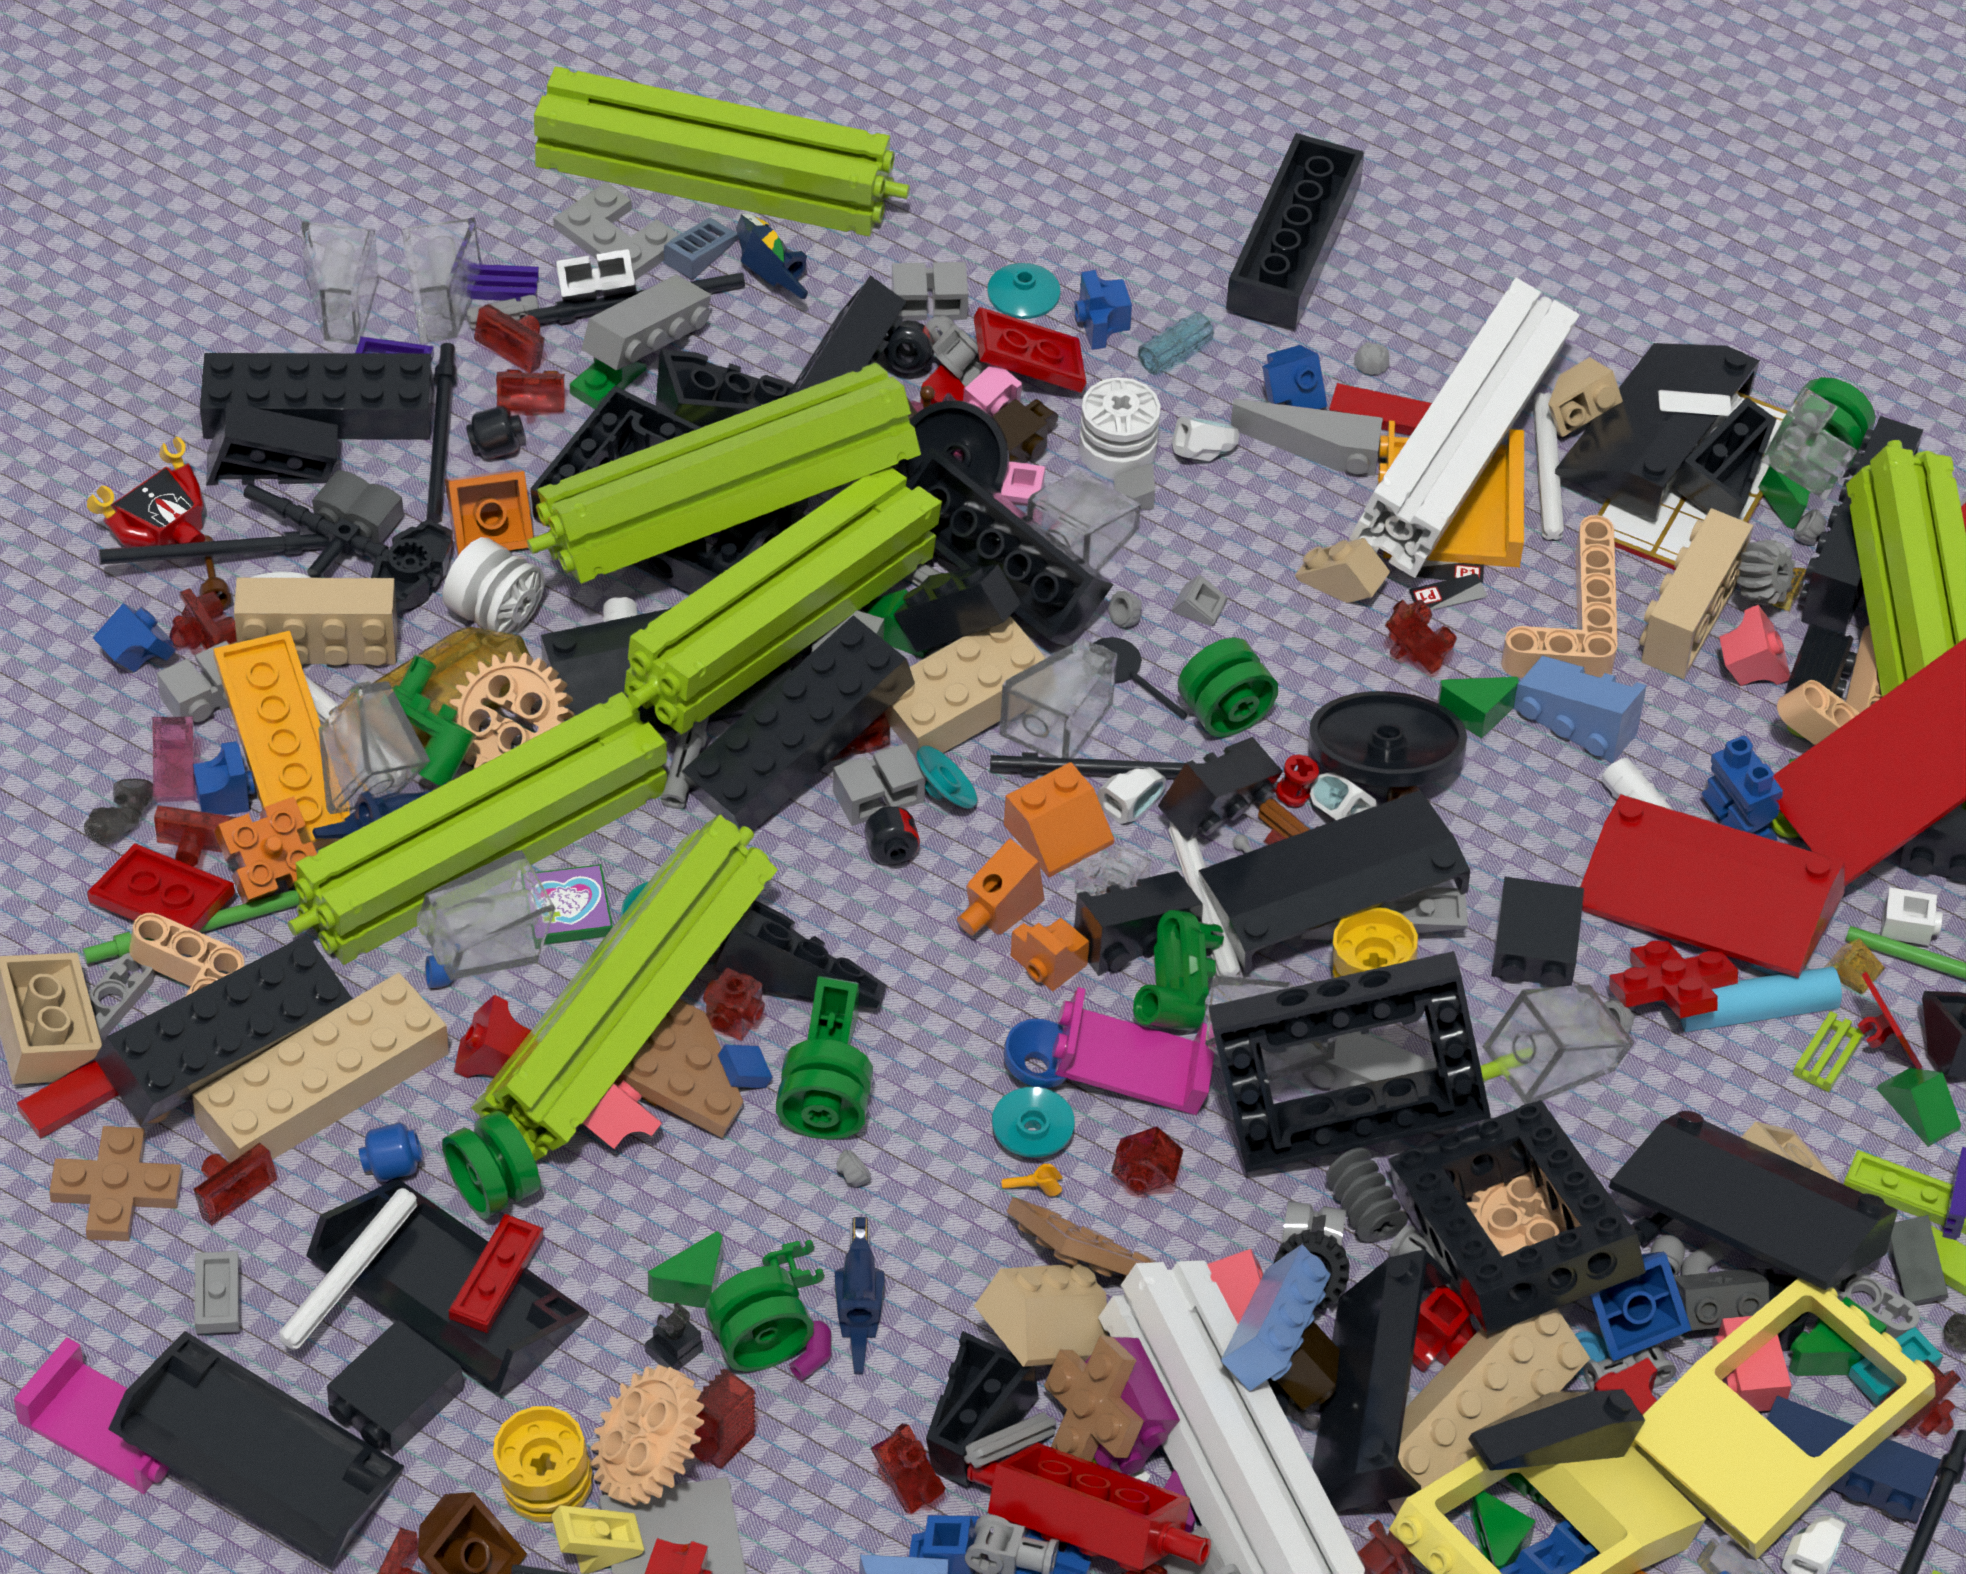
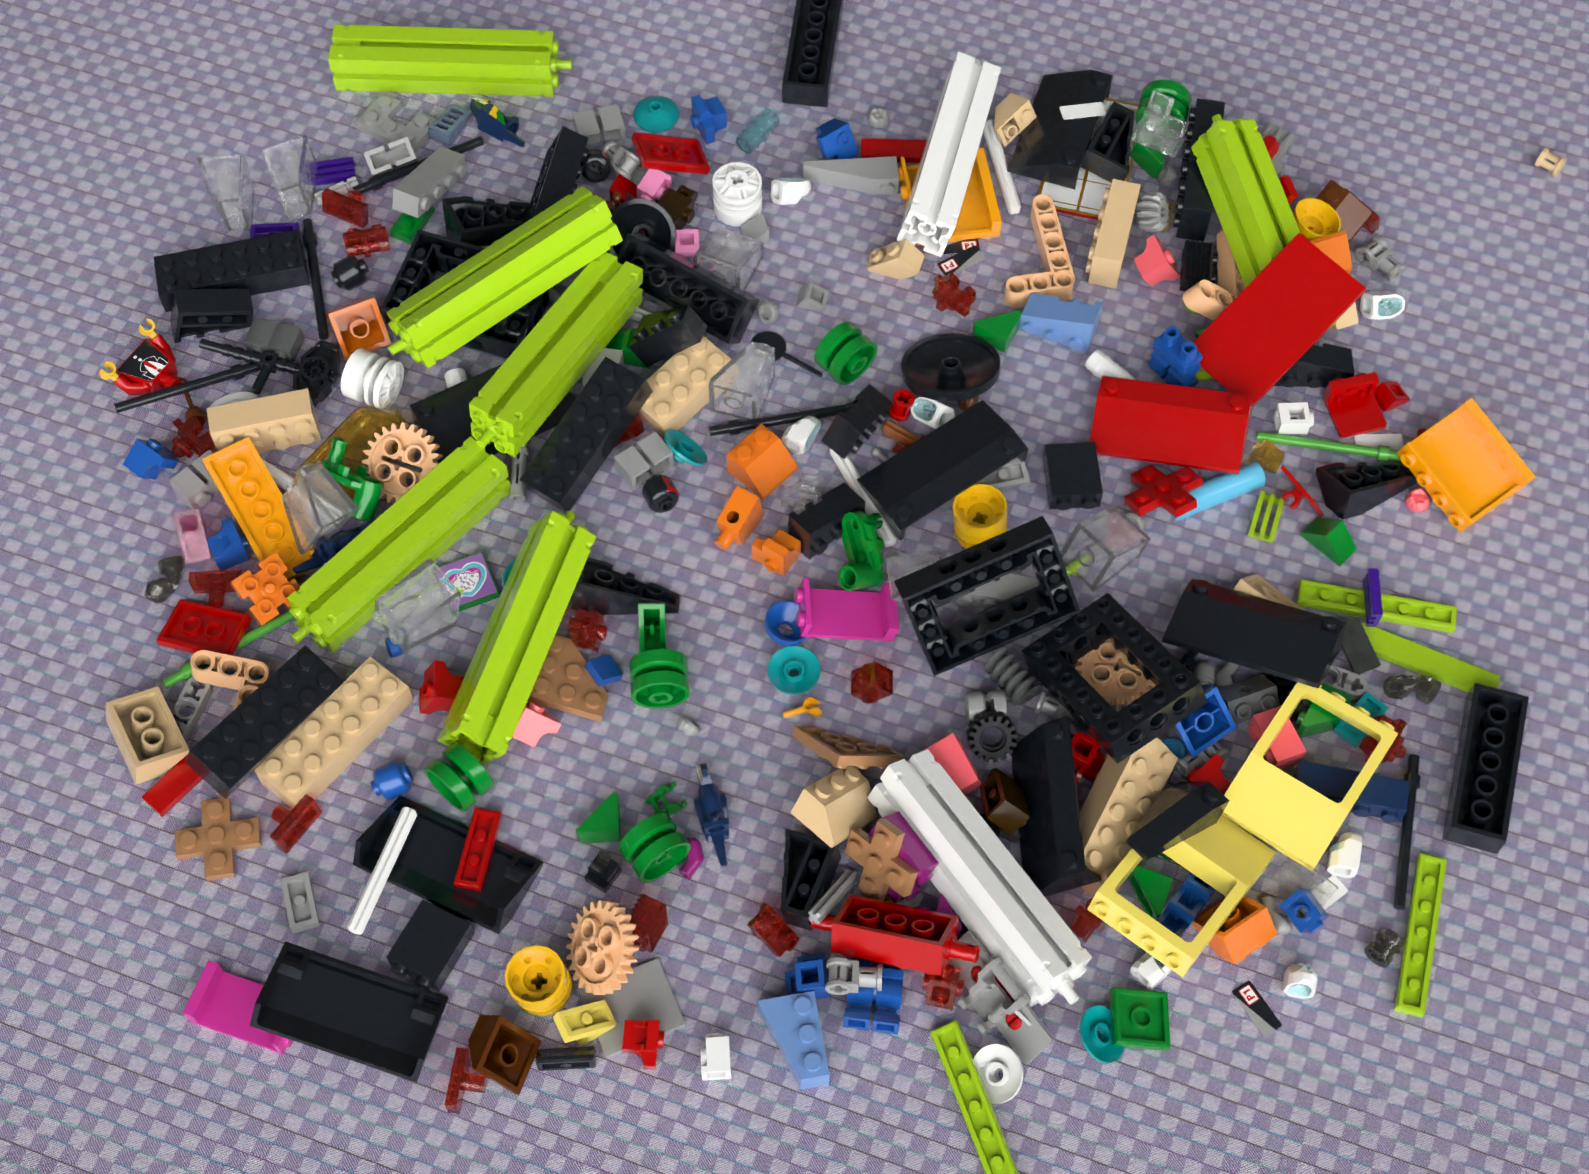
camera: 10 degrees left, 10 degrees up
(1276, 1318) = (983, 781): medium blue brick -> none

